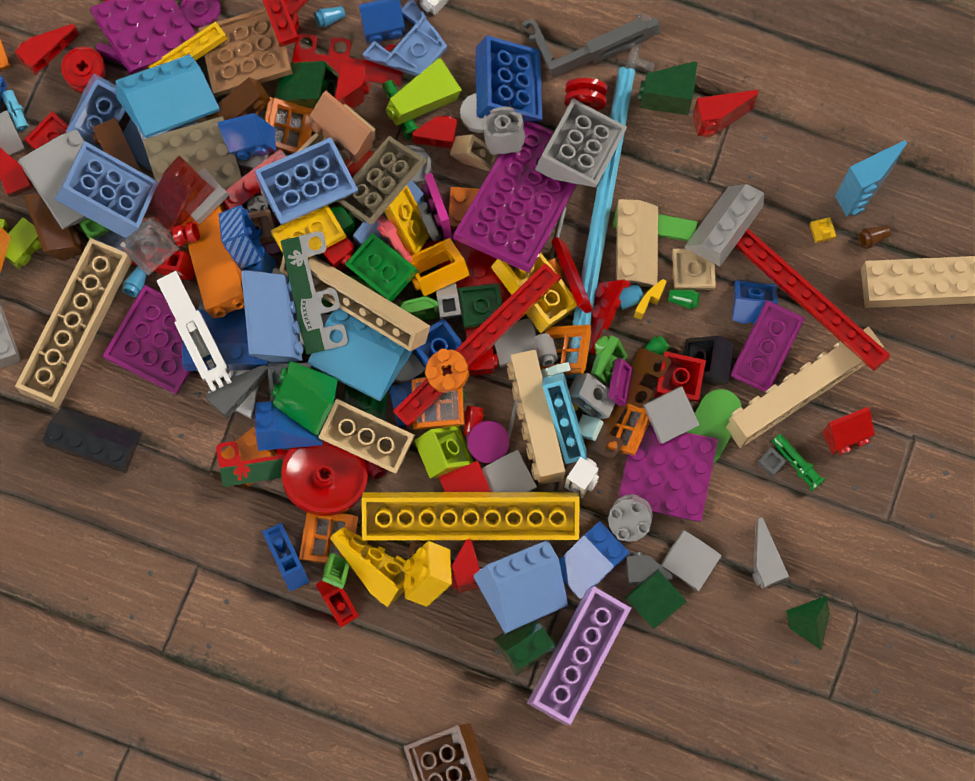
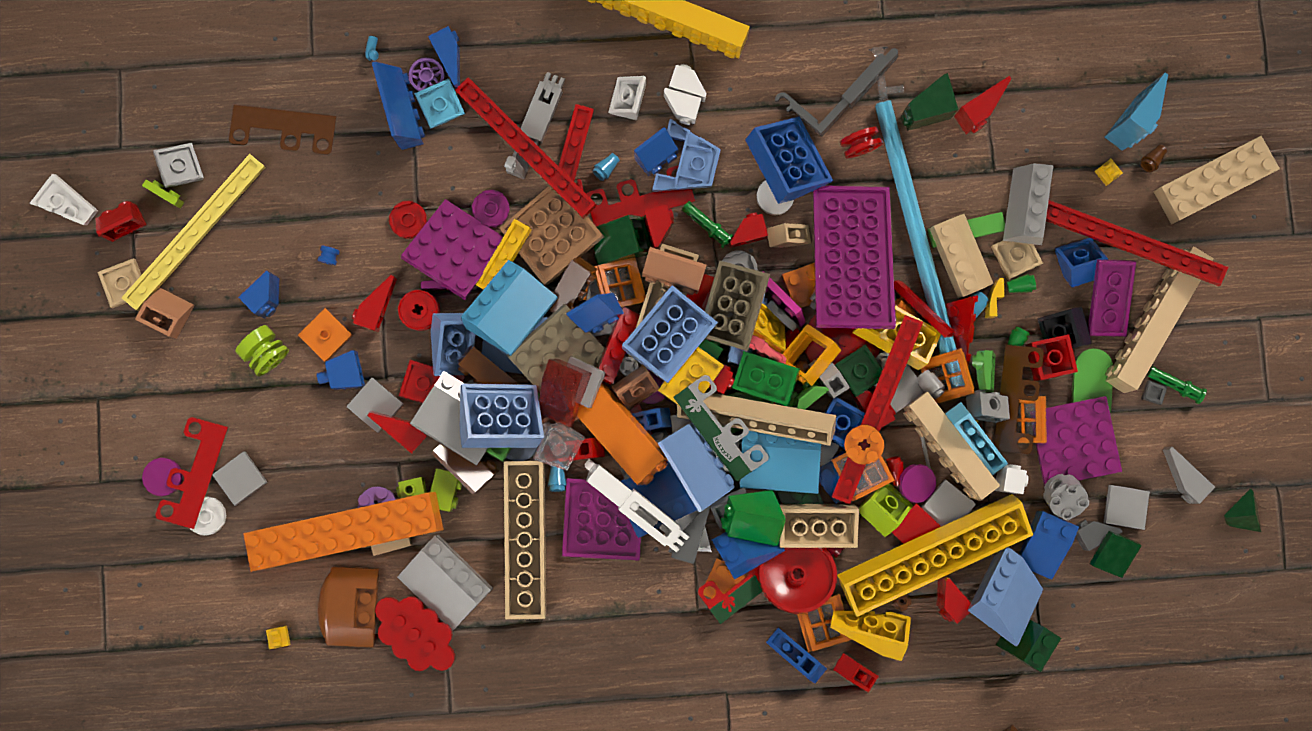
camera: 25 degrees left, 10 degrees up
(15, 110) = (377, 373): medium azure pin -> none
(92, 439) = (588, 630): black slope -> none
(186, 233) = (585, 423): red wheel -> none
(241, 237) = (636, 406): blue container -> none
(335, 570) = (846, 643): bright green slope -> none
(425, 93) = (724, 200): lime slope -> none
(427, 573) = (925, 621): yellow brick -> none
(503, 130) = (810, 208): light grey brick -> none
(557, 369) = (950, 399): light aqua tile -> none
(579, 655) = (1078, 624): lavender brick -> none
(581, 146) = (881, 192): light grey slope -> none
(590, 427) = (994, 431): light aqua tile -> none
(620, 382) = (1005, 384): magenta tile -> none
(671, 415) = (1062, 395): light grey tile -> none
(849, 431) = (1209, 340): red slope -> none

